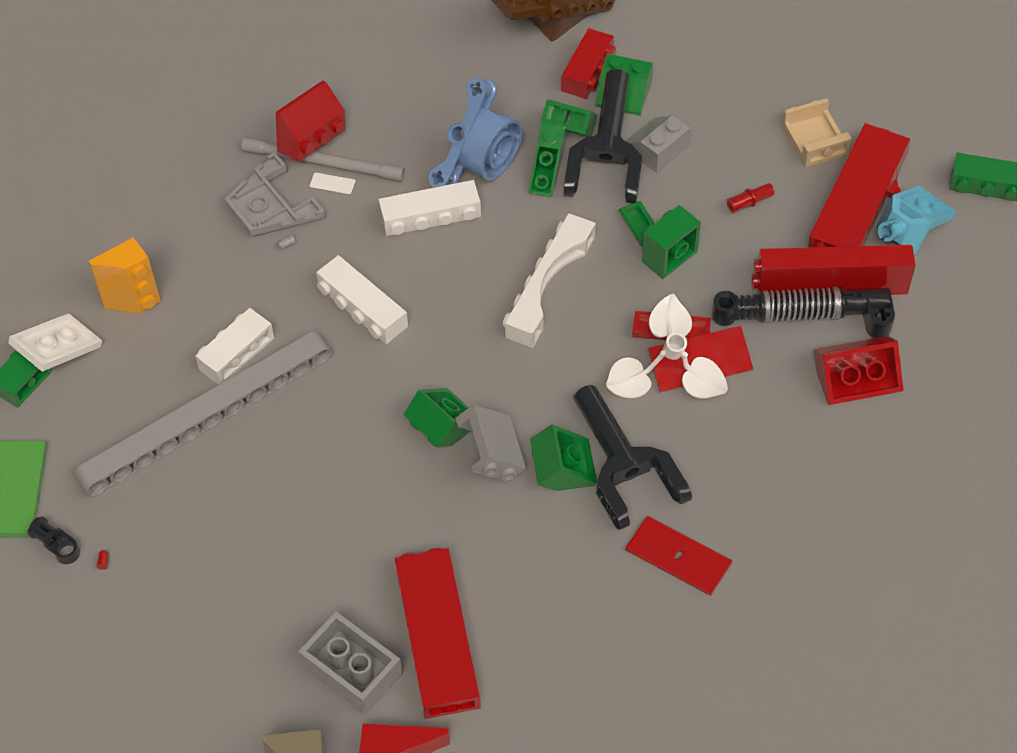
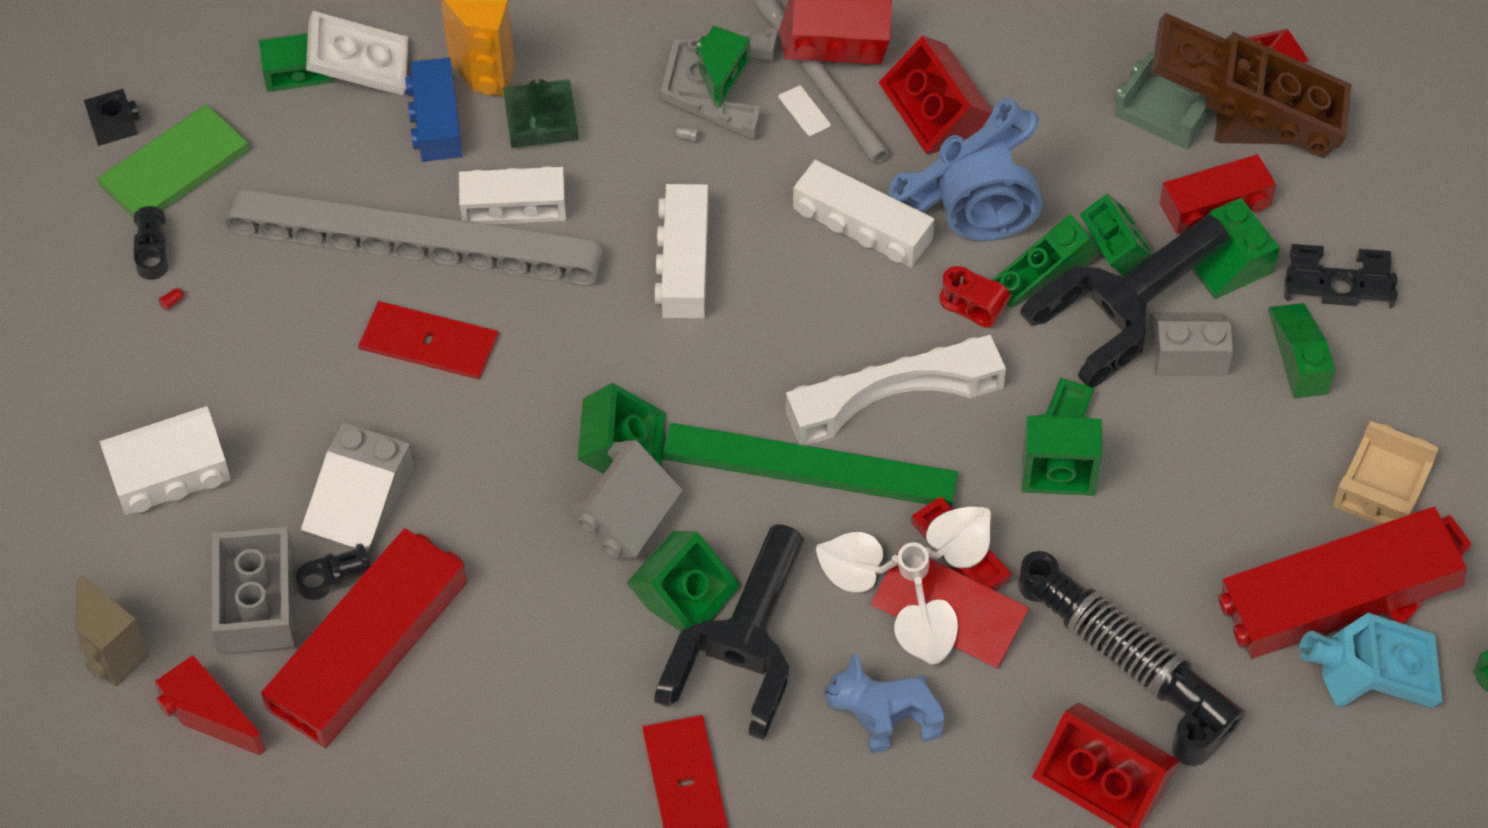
camera: 45 degrees right, 0 degrees up
(135, 337) = (434, 109): none -> blue brick
(191, 289) = (540, 108): none -> clear green plate
(218, 642) = (165, 460): none -> white slope
(258, 467) = (453, 347): none -> red piece
(269, 188) = (722, 61): none -> green slope
(338, 563) = (357, 487): none -> slope
(377, 613) = (333, 570): none -> black connector
(395, 123) = (935, 95): none -> red slope
(510, 40) = (1161, 105): none -> sand green panel
(535, 204) = (976, 298): none -> red piece
(549, 352) = (809, 464): none -> green tile
(676, 71) = (1370, 282): none -> black piece
(711, 104) = (1302, 350): none -> green slope
(728, 430) = (885, 703): none -> medium blue animal
(749, 197) = (1220, 485): red axle -> none
(835, 267) = (1206, 637): red brick -> none

